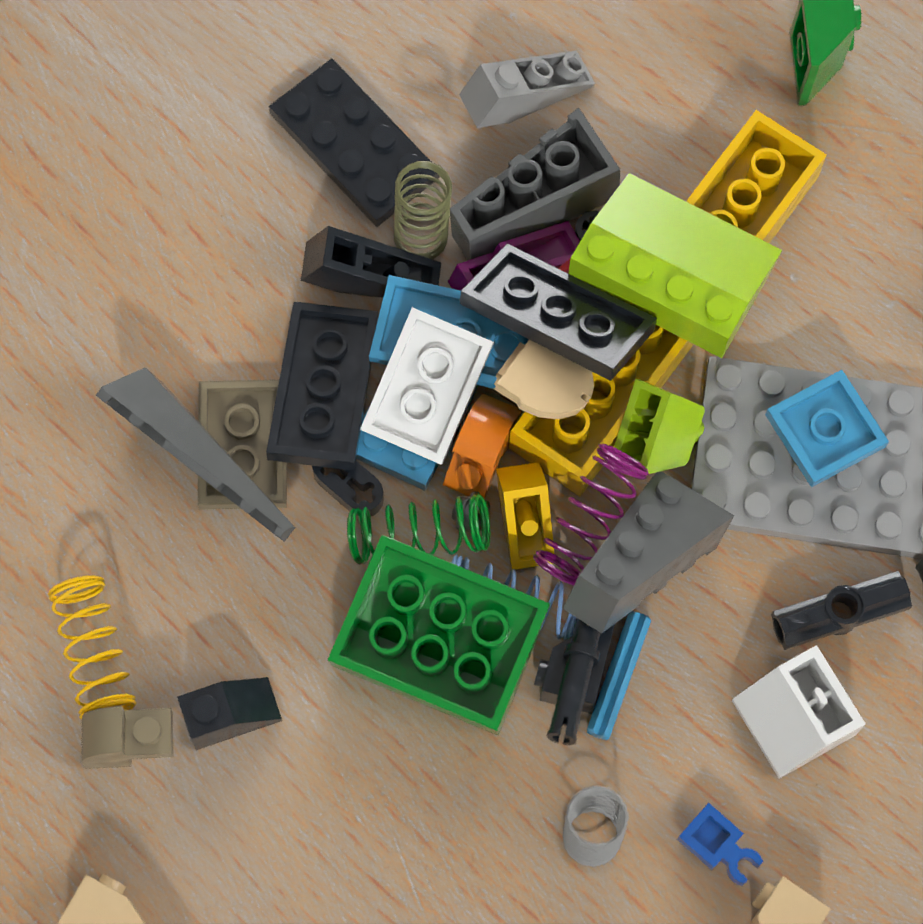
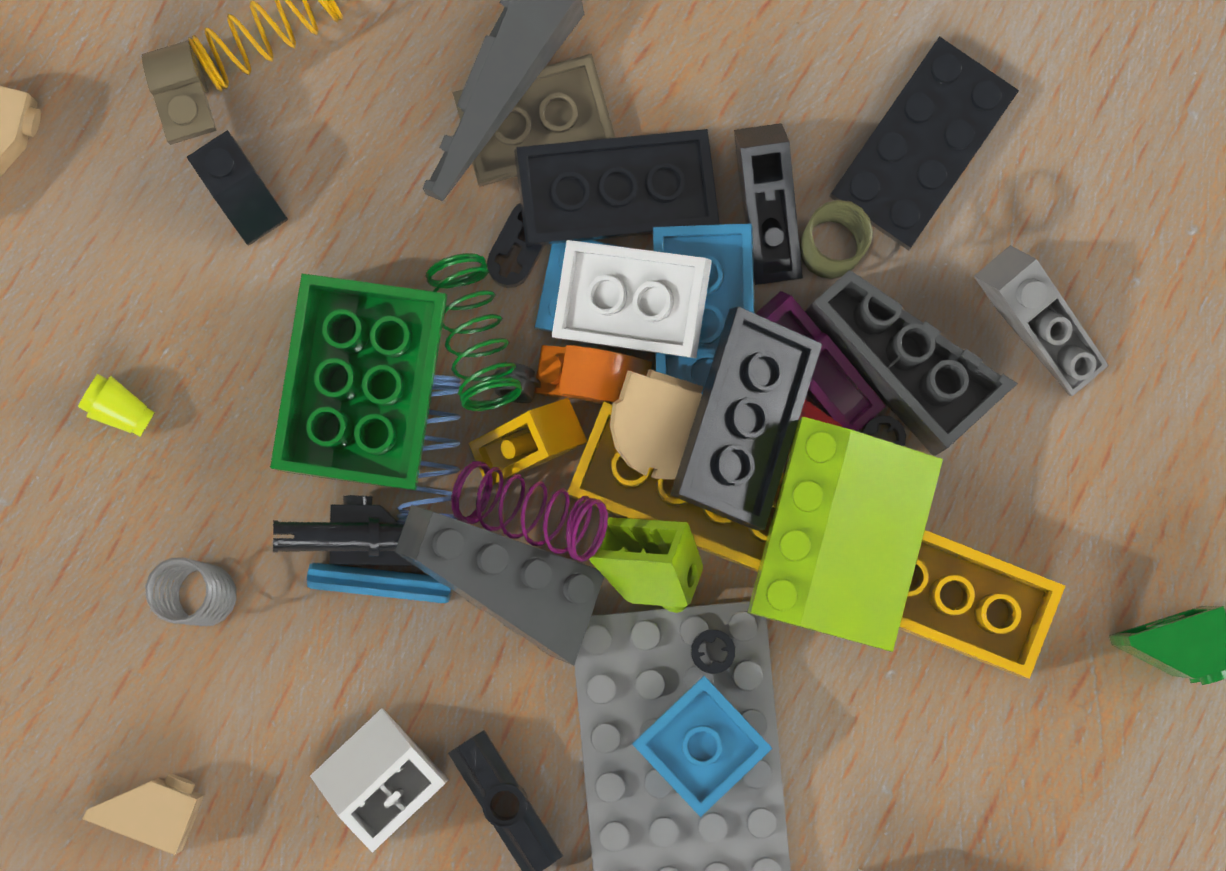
camera: 75 degrees right, 15 degrees up
(398, 872) = (115, 406): none -> neon yellow cone
(713, 840) = (226, 721): blue plate -> none
(746, 387) = (715, 666): none -> black bush

